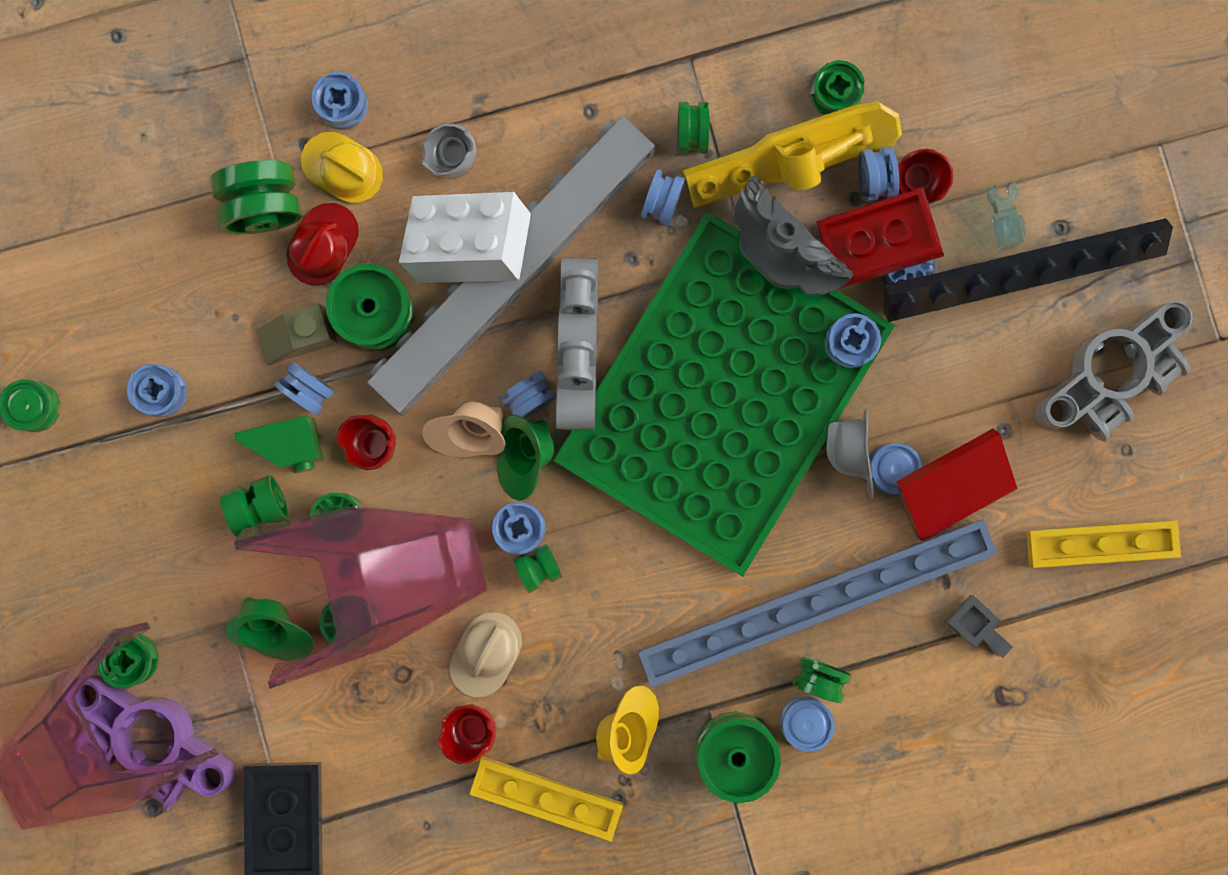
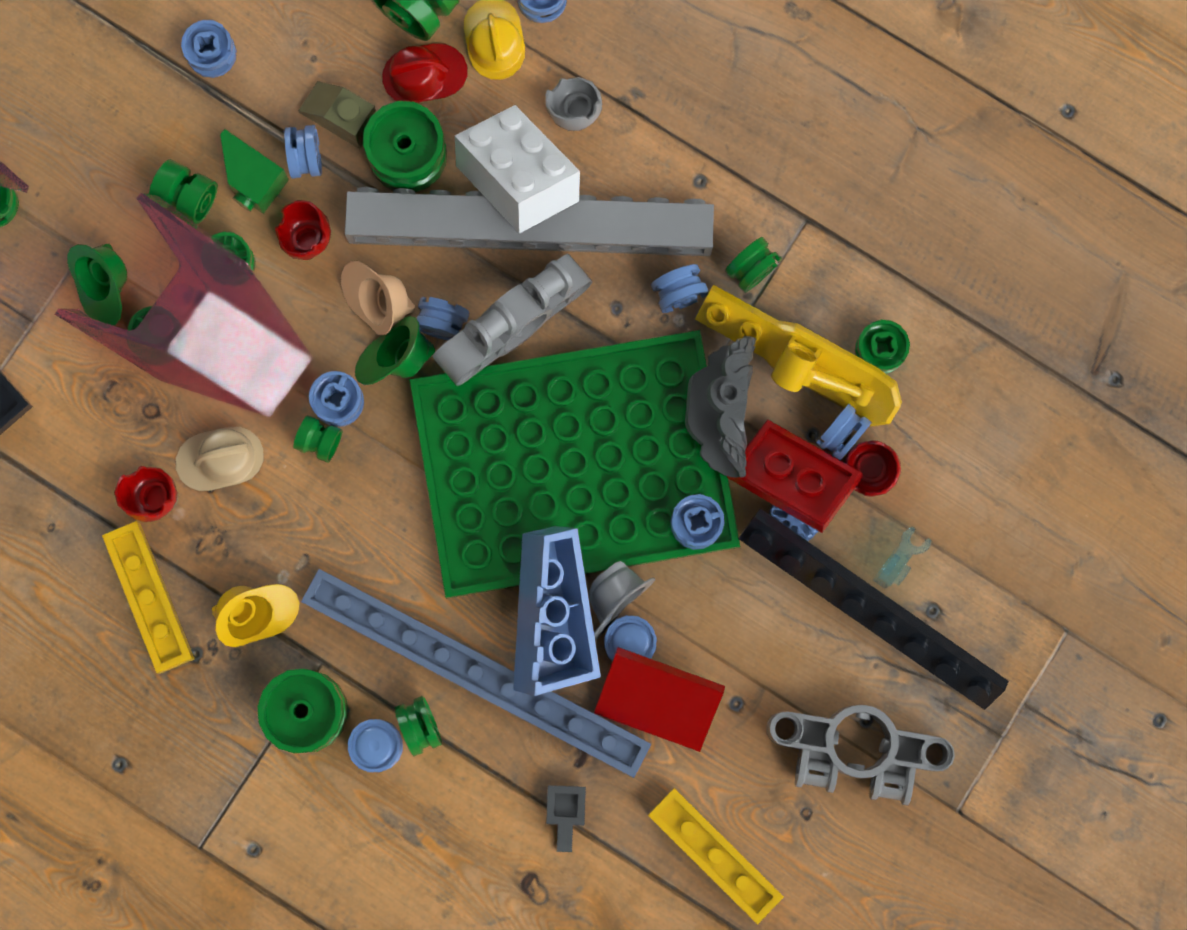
camera: 45 degrees right, 5 degrees down
(831, 508) = (553, 614): none -> medium blue wedge

